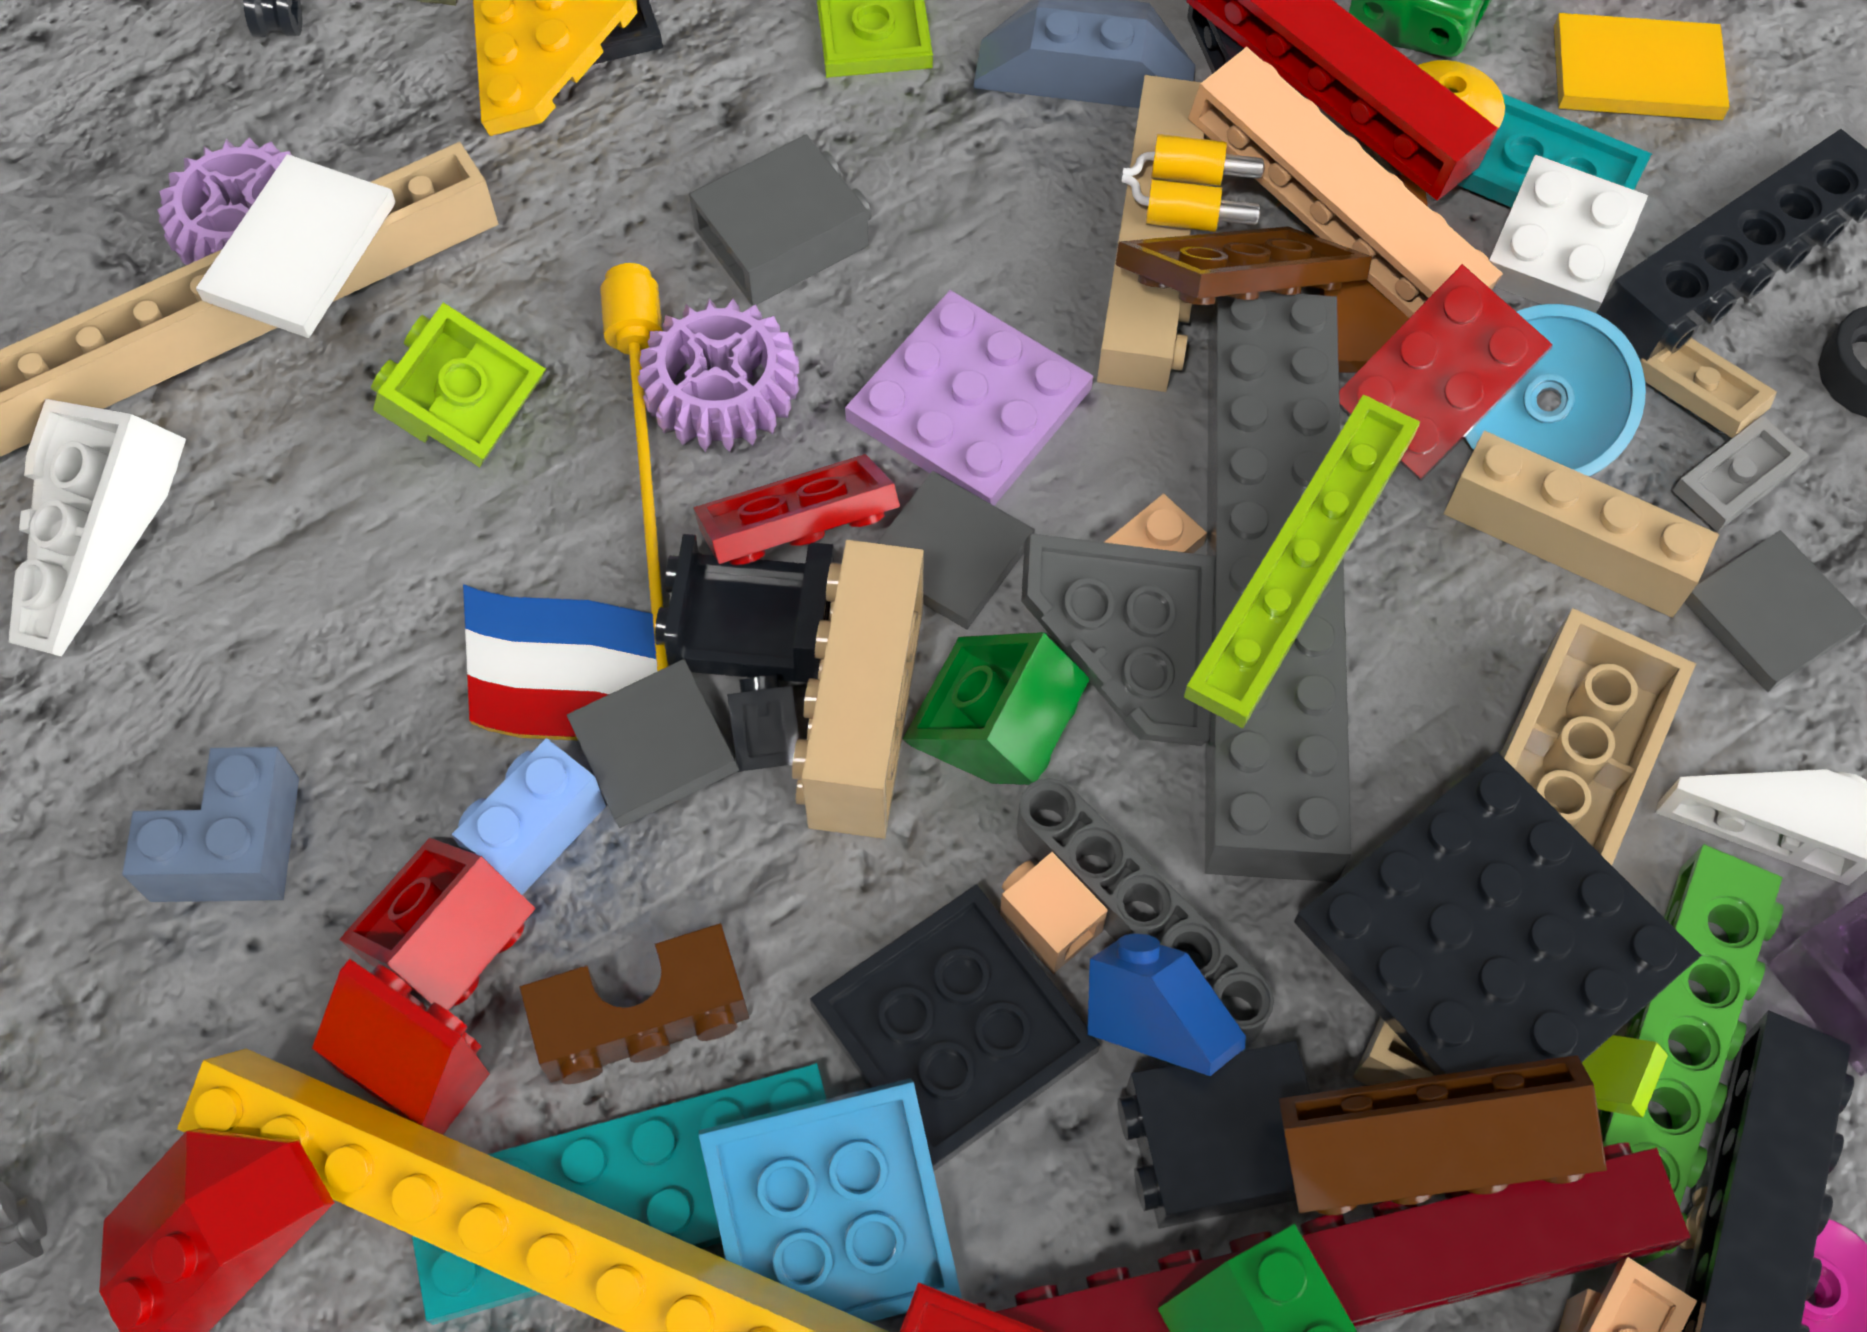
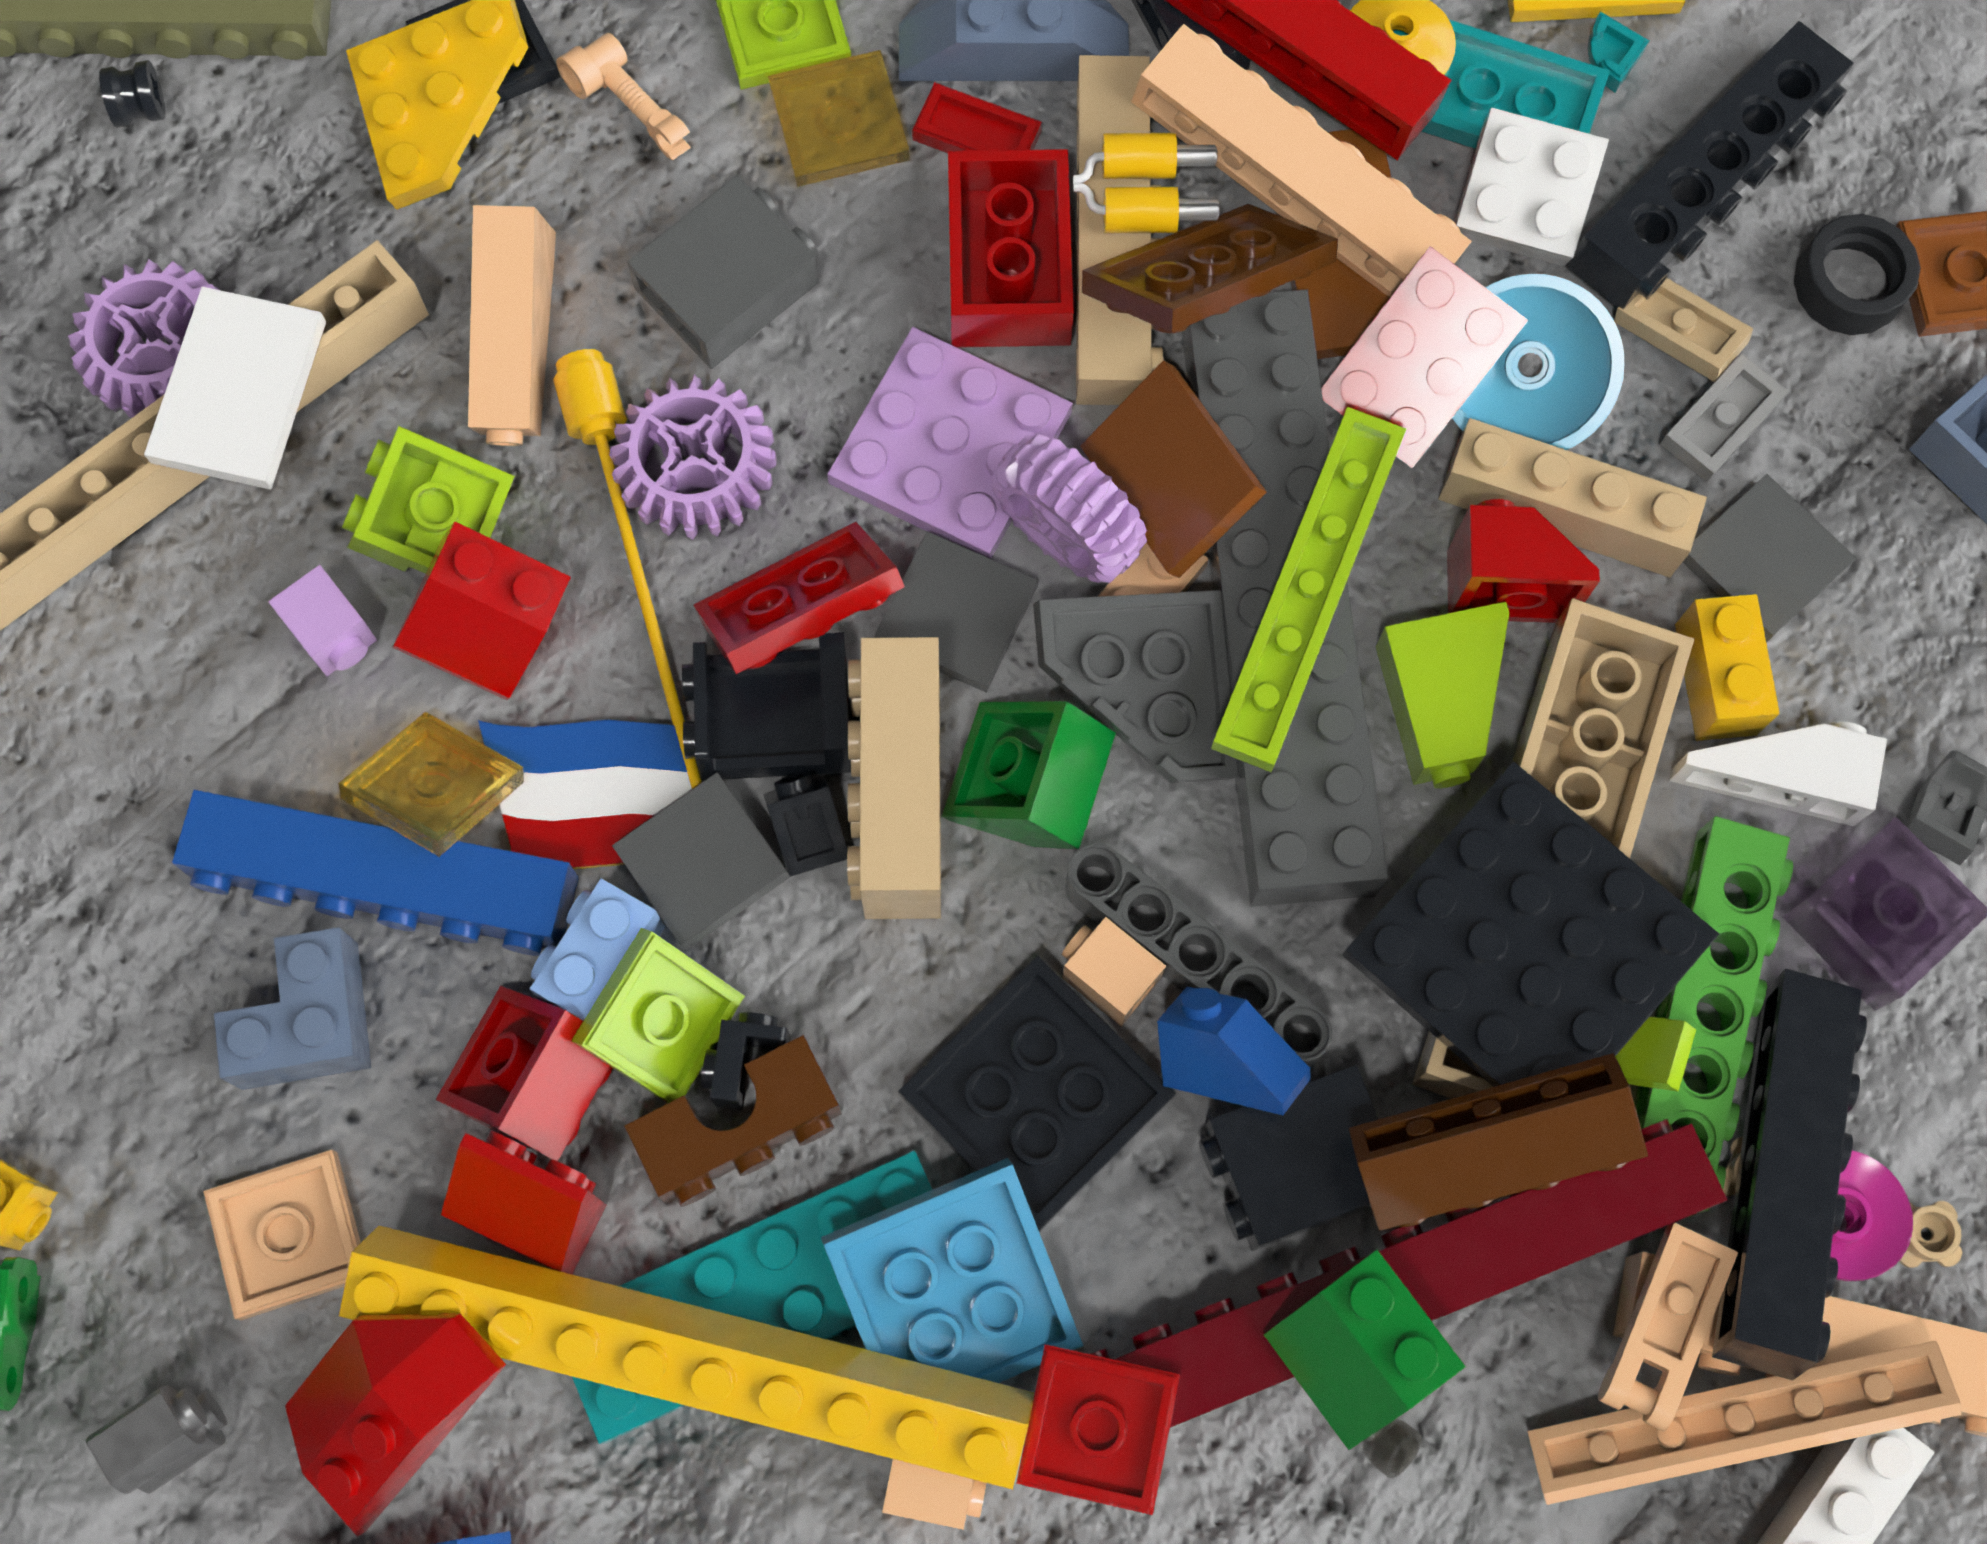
camera: 10 degrees left, 10 degrees up
(92, 499) = (81, 696): white wedge -> none
(148, 1048) = (283, 1234): none -> light nougat tile
(328, 706) = (374, 871): none -> blue brick
(335, 471) = (323, 621): none -> lavender brick
(401, 630) = (431, 783): none -> clear yellow tile
(484, 478) = (481, 611): none -> red slope
(569, 230) = (509, 321): none -> light nougat slope
(577, 885) = (657, 1017): none -> lime tile
(634, 948) = (725, 1068): none -> black bracket
(702, 39) = (601, 66): none -> light nougat brick
(912, 109) = (838, 118): none -> clear yellow tile
(1039, 136) = (966, 123): none -> red tile
(1052, 230) = (1010, 248): none -> red brick
(1074, 459) = (1069, 508): none -> lavender gear
(1182, 440) = (1174, 468): none -> dark orange tile
(1429, 685) = (1444, 689): none -> lime slope
(1516, 574) = (1517, 560): none -> red slope
(1660, 138) = (1614, 49): none -> teal tile
(1728, 704) = (1728, 668): none -> yellow brick

